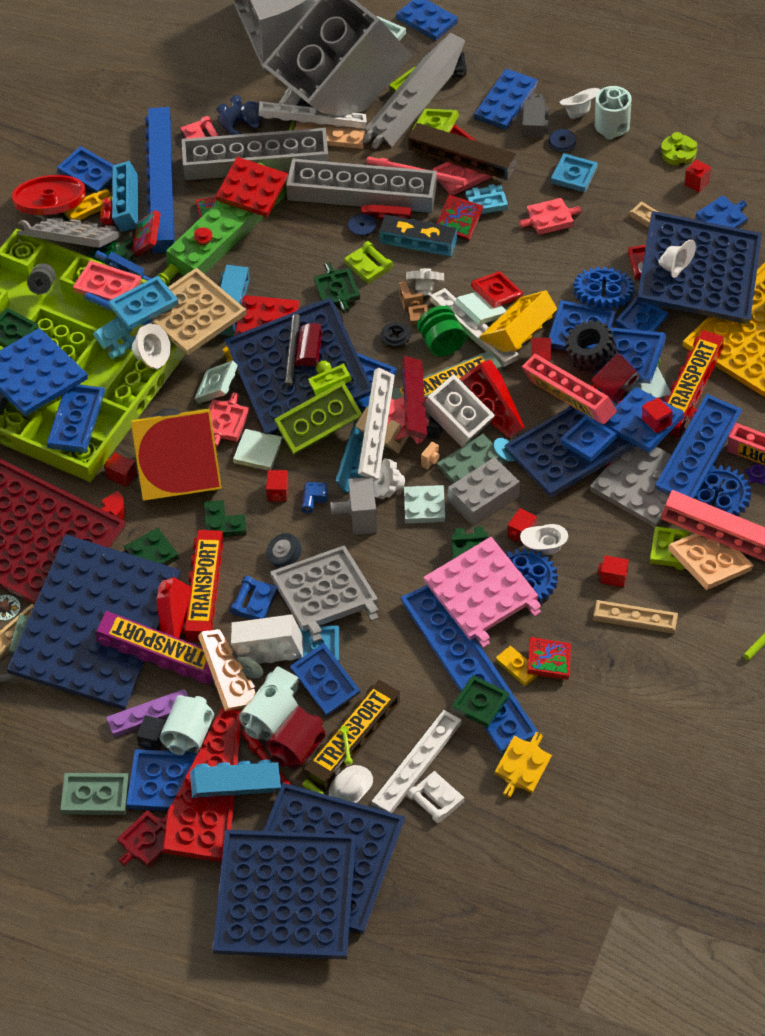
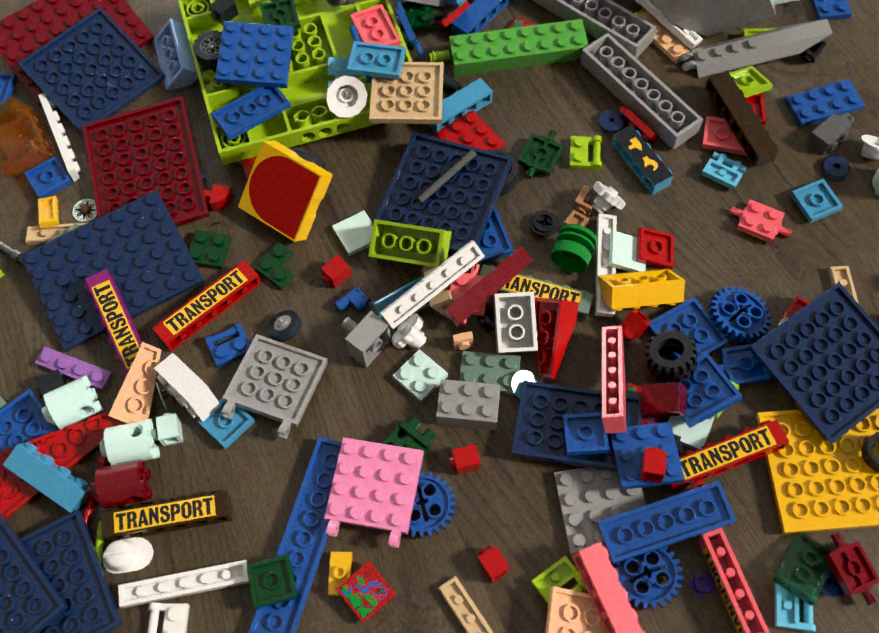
camera: 45 degrees right, 10 degrees up
(172, 605) = (167, 300): red slope -> none
(203, 236) = (481, 43): red plate -> none
(216, 382) = (377, 160): light aqua plate -> none
(228, 418) = (358, 192): coral plate -> none
(252, 187) = (554, 32): red plate -> none
(309, 345) = (460, 183): dark red brick -> none
(325, 679) = (196, 454): blue plate -> none
(328, 377) = (448, 220): lime plate -> none
(344, 731) = (156, 510): lime hinge -> none
(440, 176) = (677, 86): coral bar -> none
(460, 215) = (687, 168): tile -> none
(545, 538) = (466, 486): white piece -> none
(678, 257) = (815, 340): white piece -> none

